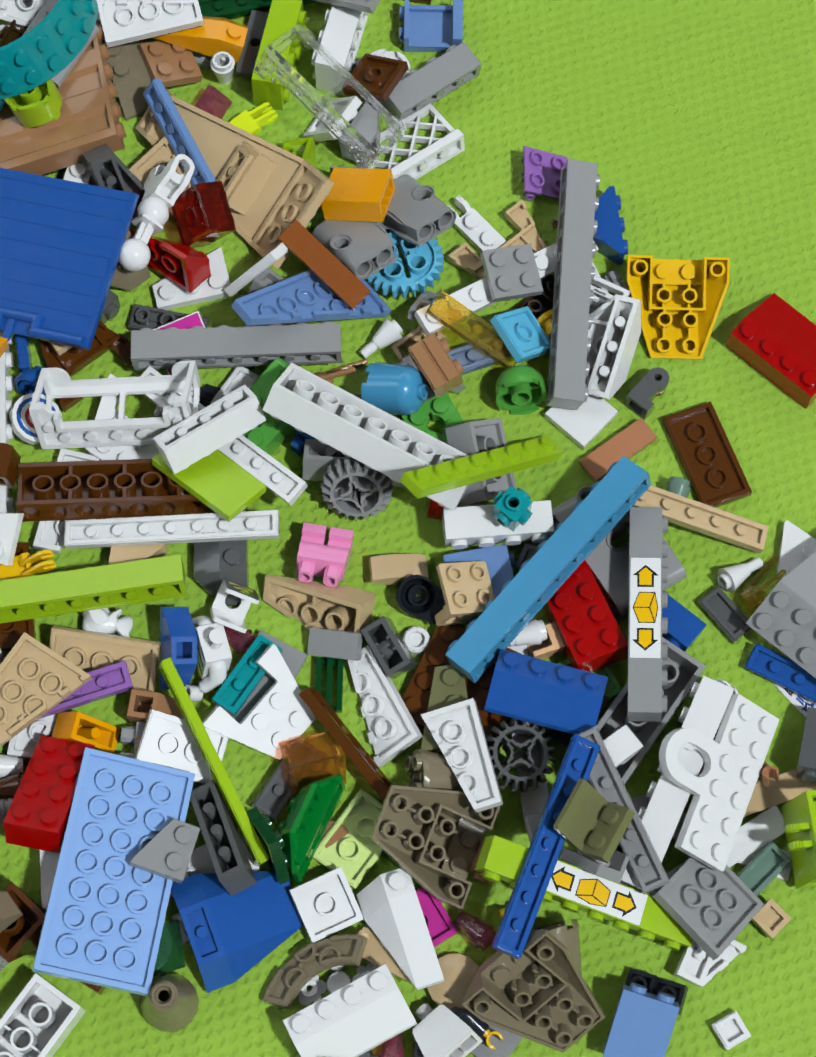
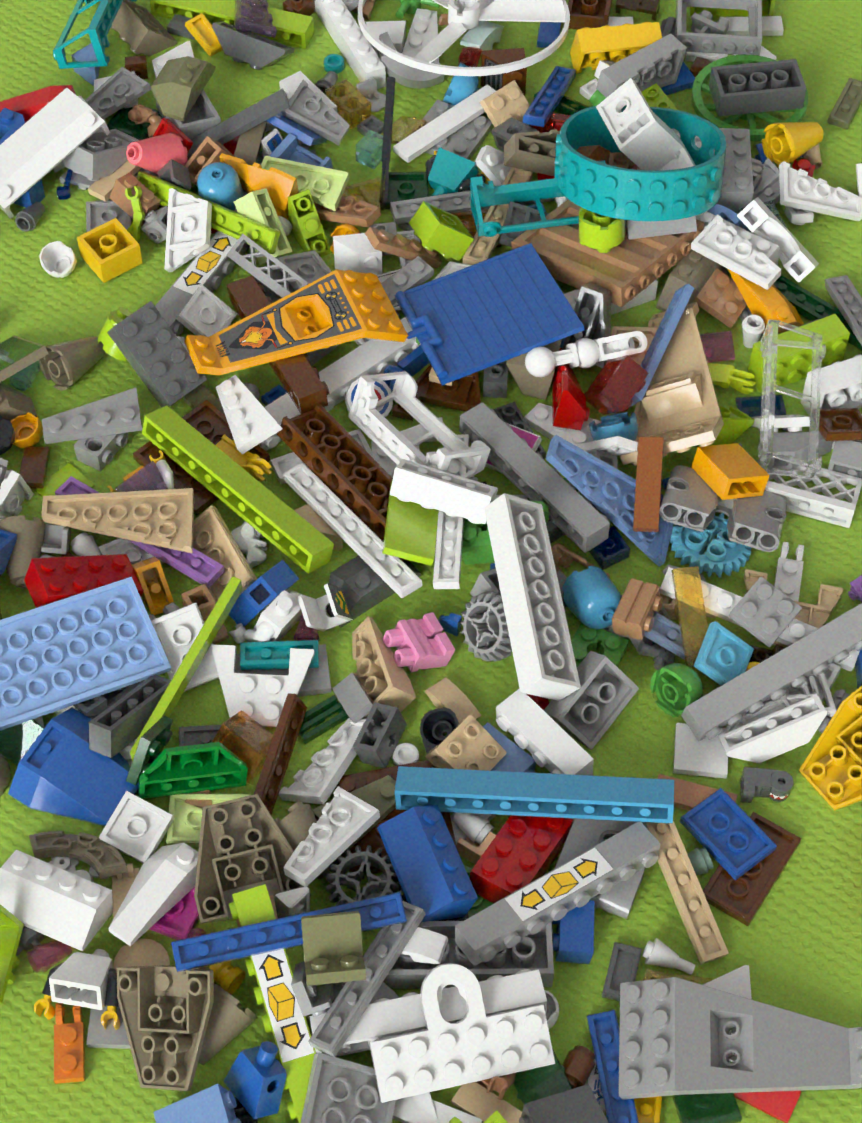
camera: 55 degrees right, 15 degrees down
(168, 851) = (92, 683): light grey wing -> none
(237, 250) = (615, 425): none -> dark azure cylinder
(295, 123) = (752, 405): none -> tile
(321, 516) = (451, 623): none -> blue tile
(350, 341) = (611, 550): none -> piece
(387, 334) = (640, 571): white cone -> none
(477, 379) = (661, 655): none -> dark grey piece
(481, 466) = (574, 686): lime plate -> none
(503, 823) = (292, 902): none -> white slope
(507, 515) = (557, 729): teal brick -> none
(634, 955) = (258, 1080): none -> blue torso
(672, 449) = (728, 833): none -> blue tile
(783, 706) = (579, 1065): none -> reddish brown brick
(785, 742) = (541, 1082): none -> clear green piece

